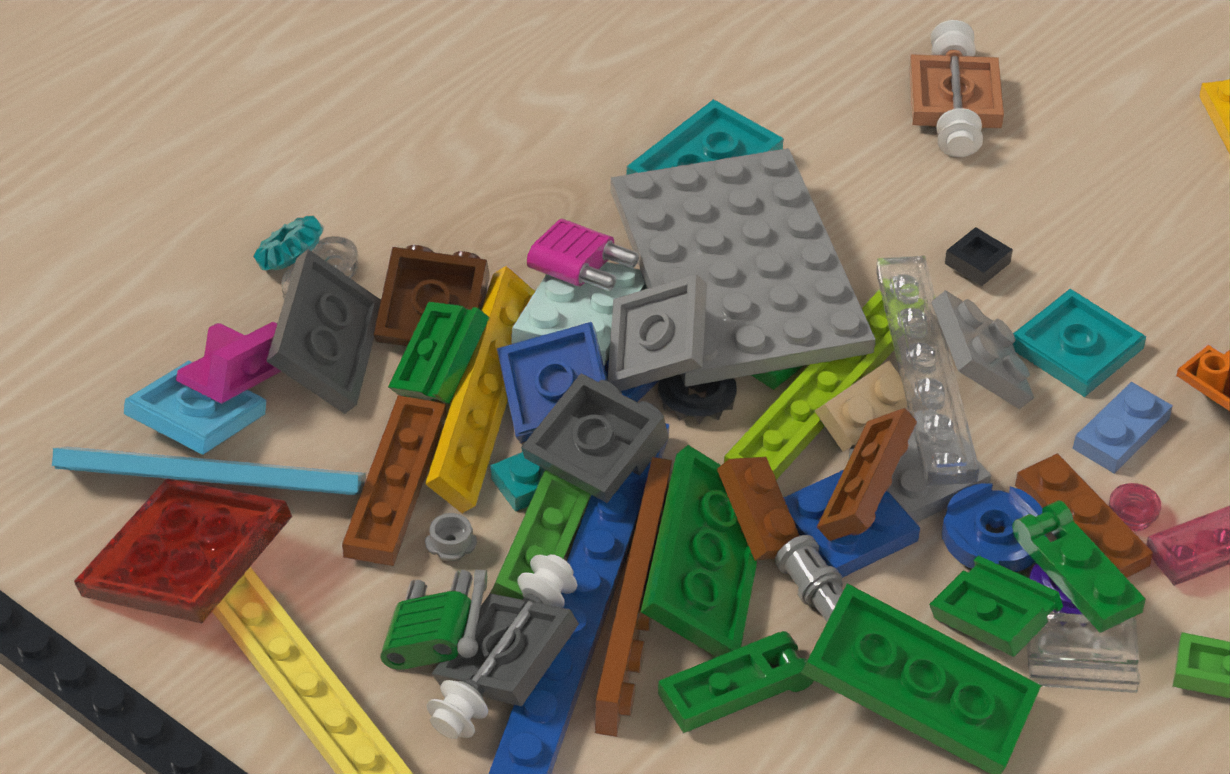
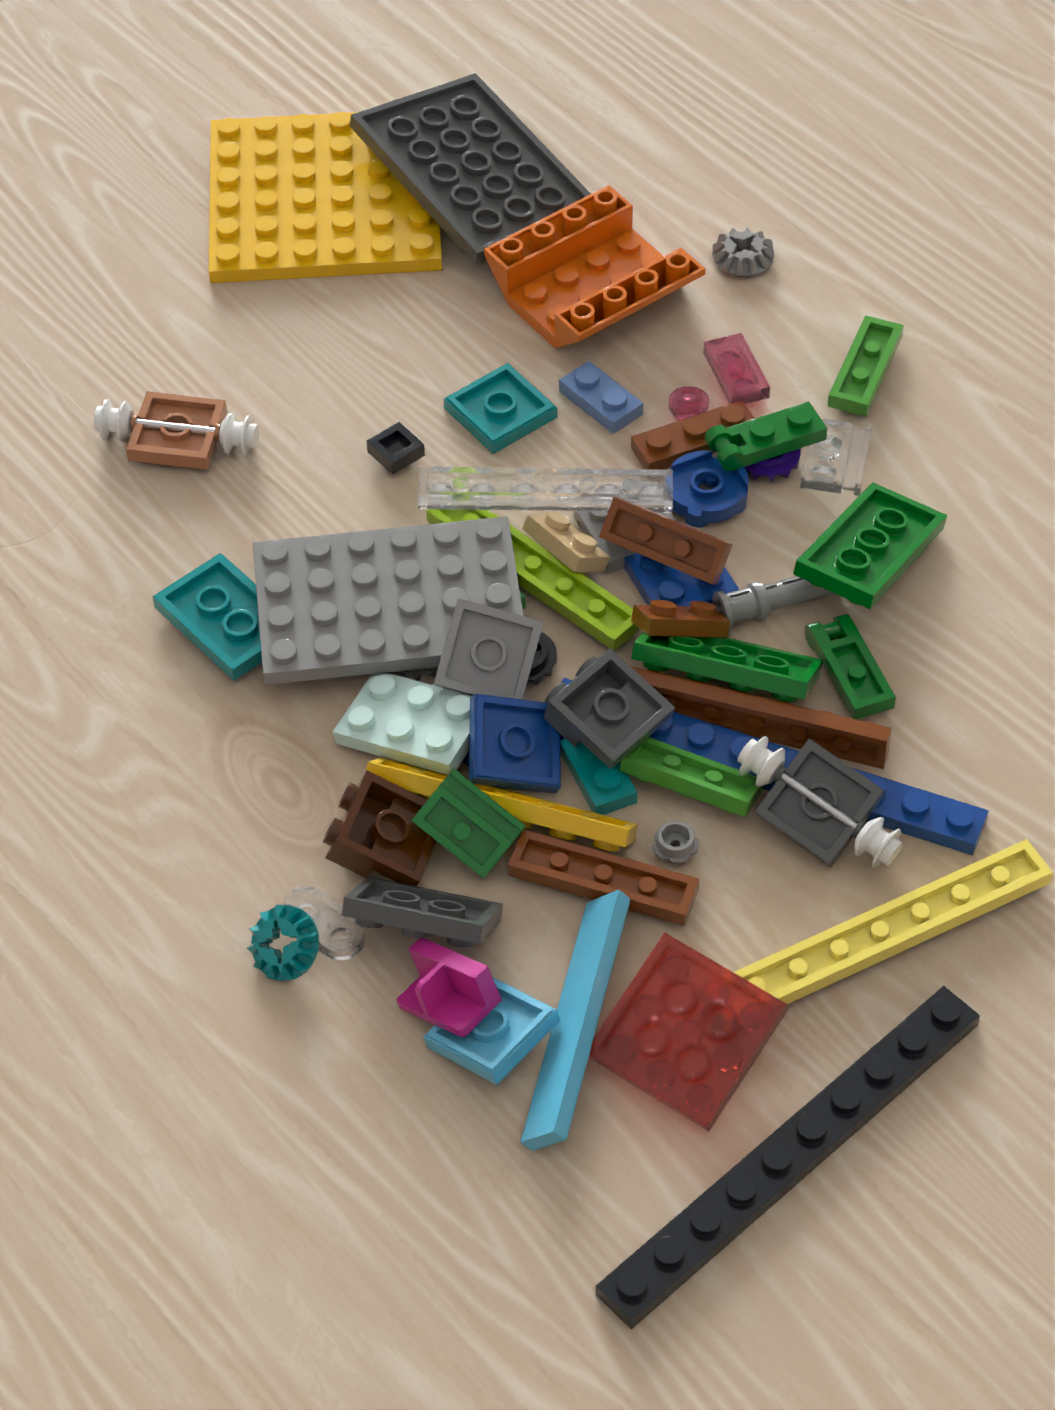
camera: 80 degrees left, 5 degrees up
(427, 627) = (785, 859): green piece -> none
(468, 646) = (745, 814): light grey hinge -> none
(577, 254) = (365, 708): dark pink piece -> none
(983, 349) = (543, 450): light grey plate -> none
(996, 606) = (795, 493): green plate -> none

